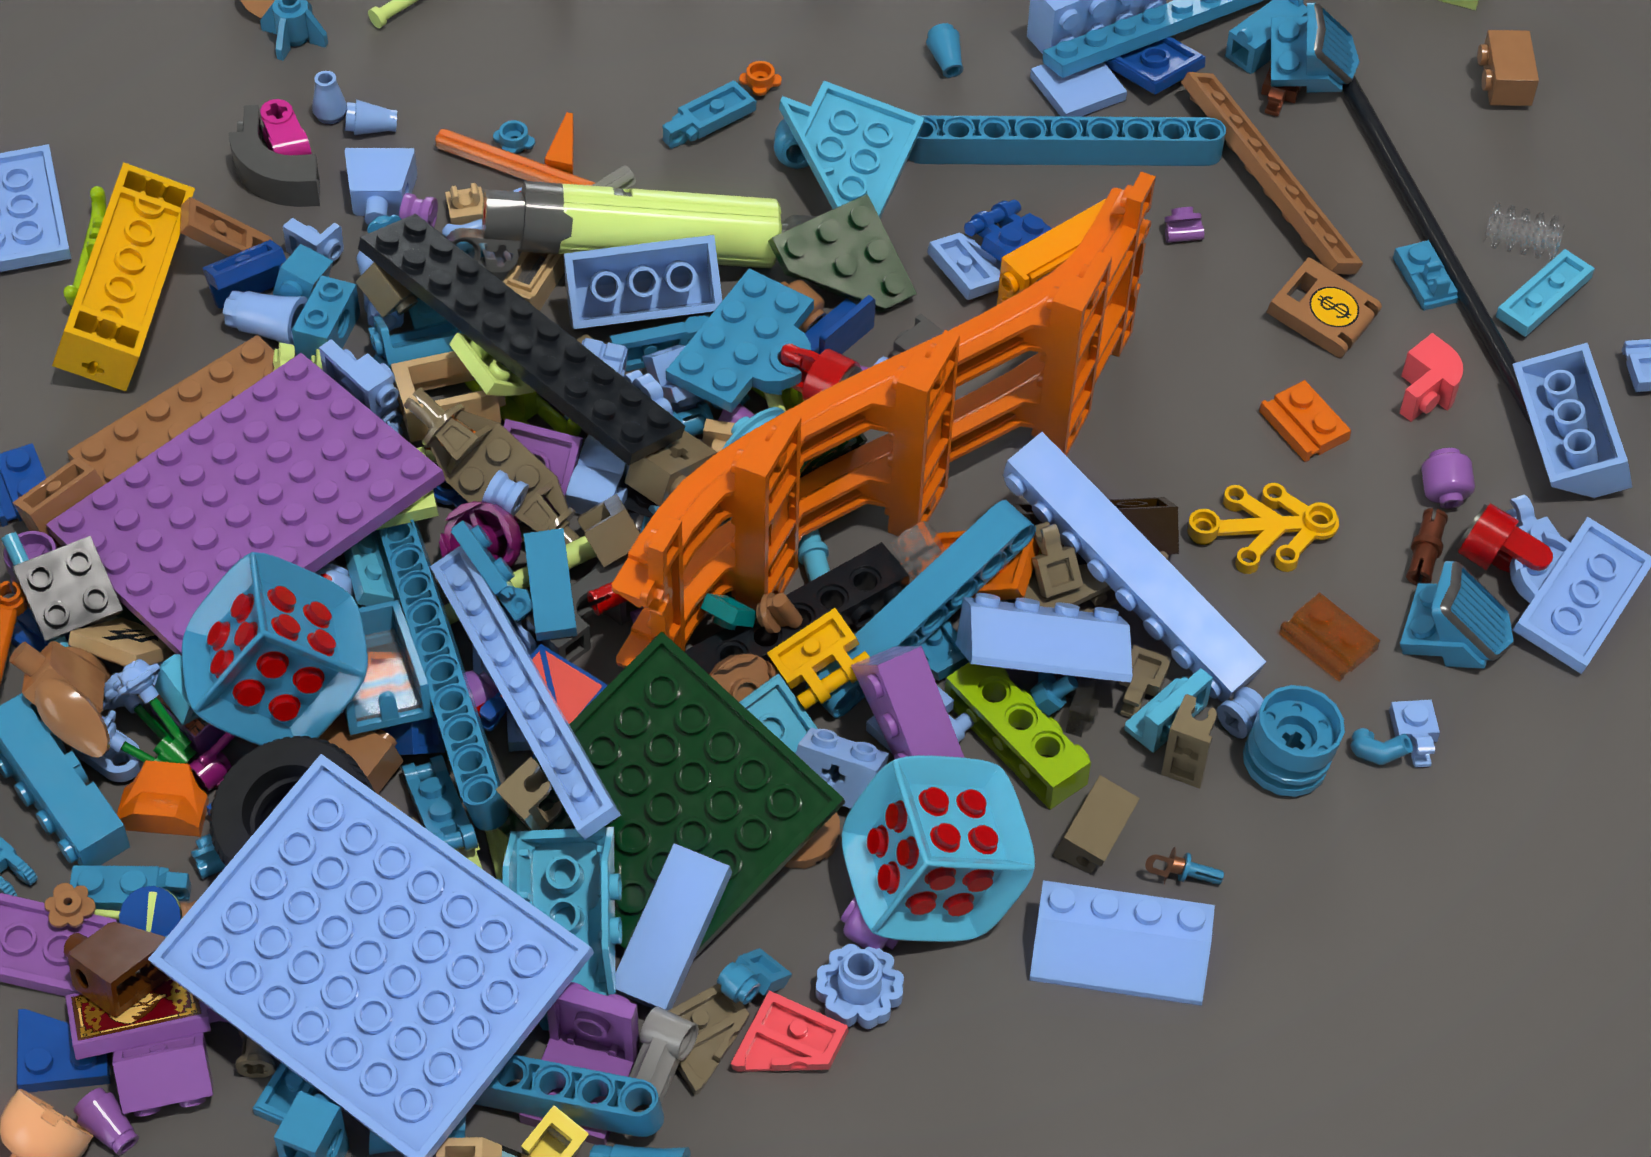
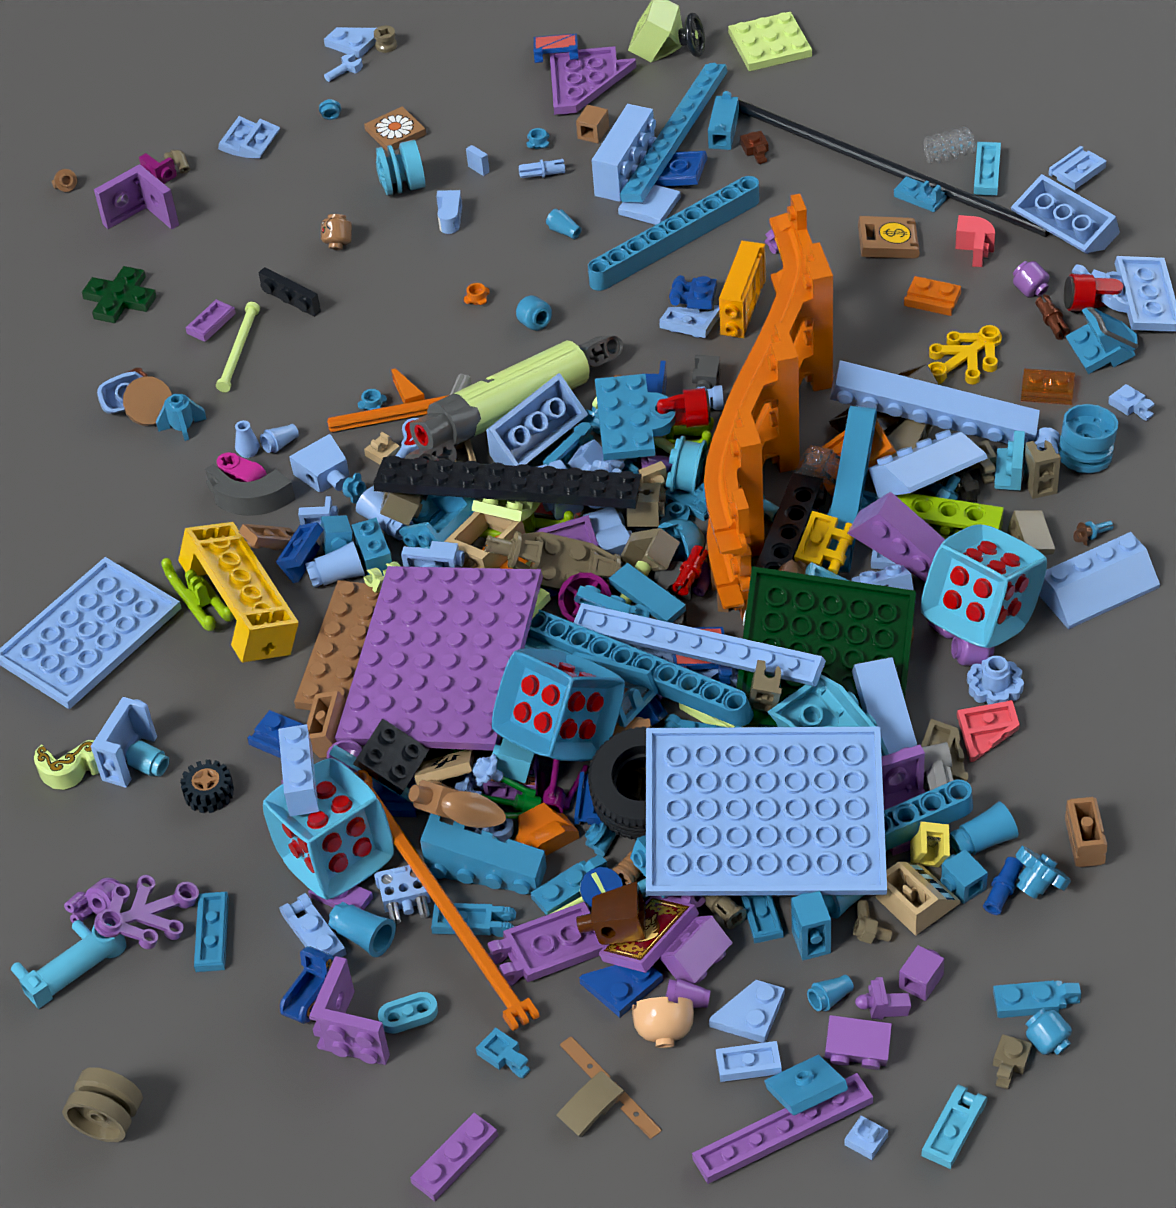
camera: 30 degrees left, 5 degrees down
(72, 914) = (556, 915): medium nougat plant -> none
(424, 208) = (363, 466): medium lavender wheel -> none
(505, 492) = (577, 564): light blue wheel -> none
(708, 114) = (468, 327): dark azure hinge -> none
(728, 611) = (759, 548): teal plate -> none
(752, 974) = (942, 710): dark azure plate -> none
(777, 612) = (781, 533): medium nougat plate -> none
(846, 255) = (626, 349): plate -> none
(852, 143) = (578, 294): medium azure wing -> none
(1057, 565) = (897, 426): dark tan plate -> none
(1273, 174) = (785, 186): medium nougat plate -> none
(1312, 51) = (760, 117): dark azure piece -> none
(1379, 752) = (1128, 421): dark azure arm -> none
(1508, 67) = (863, 71): medium nougat brick -> none

